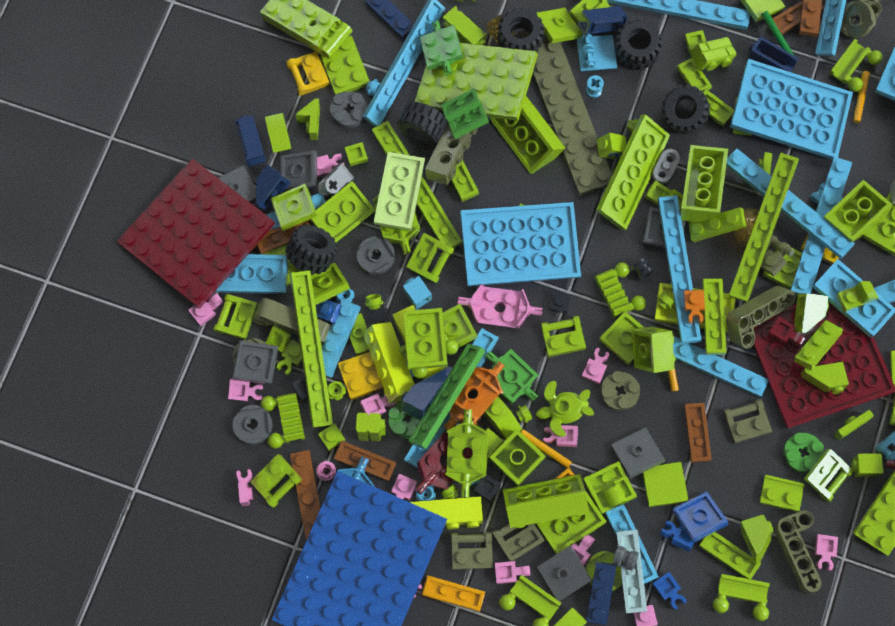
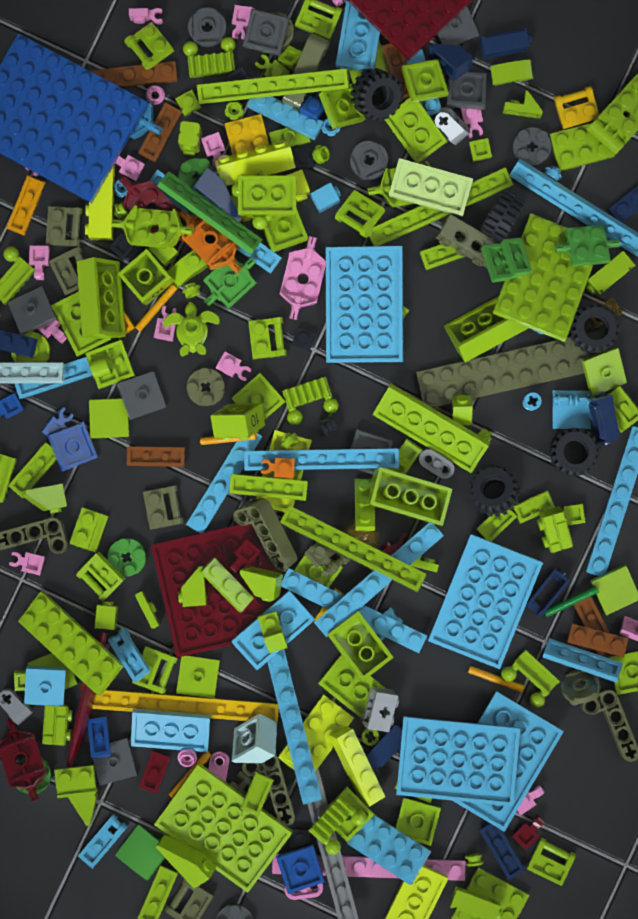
camera: 95 degrees right, 15 degrees up
(625, 558) = (34, 366): dark grey wheel -> none
(754, 198) = (390, 548): none -> dark red plate

